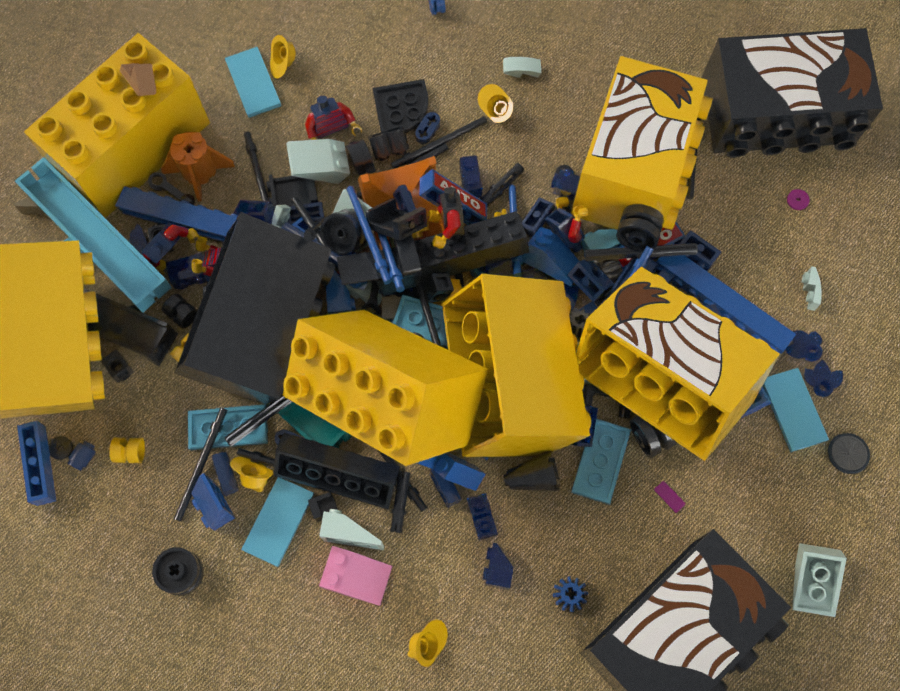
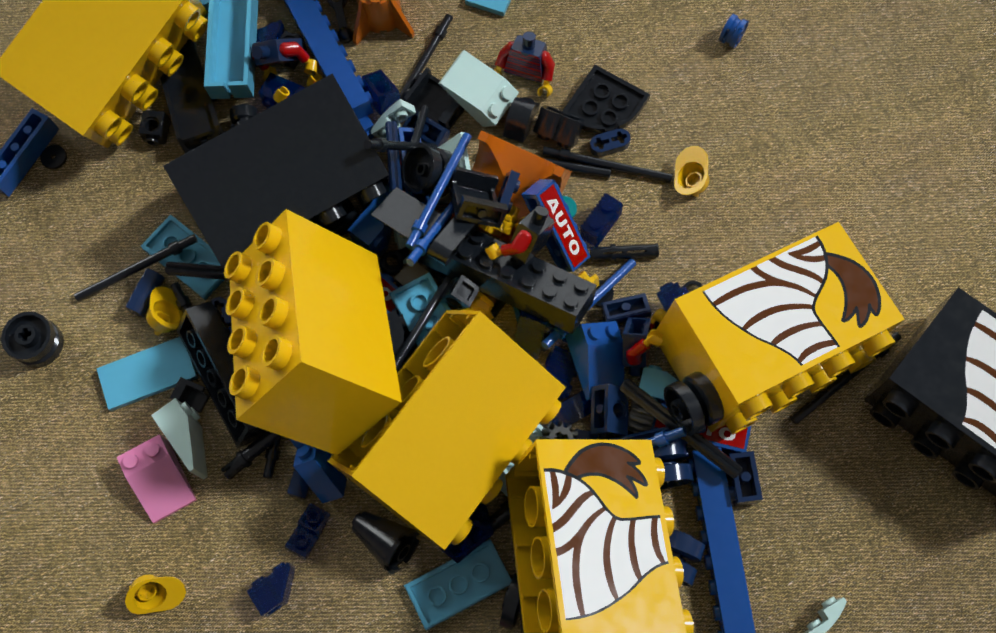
camera: 50 degrees right, 0 degrees up
(81, 455) = (59, 177): dark blue brick -> none
(127, 450) = (93, 204): yellow wheel -> none
(211, 503) = (110, 309): blue slope -> none
(522, 65) = (755, 156): light aqua slope -> none
(800, 194) = (897, 524): magenta wheel -> none

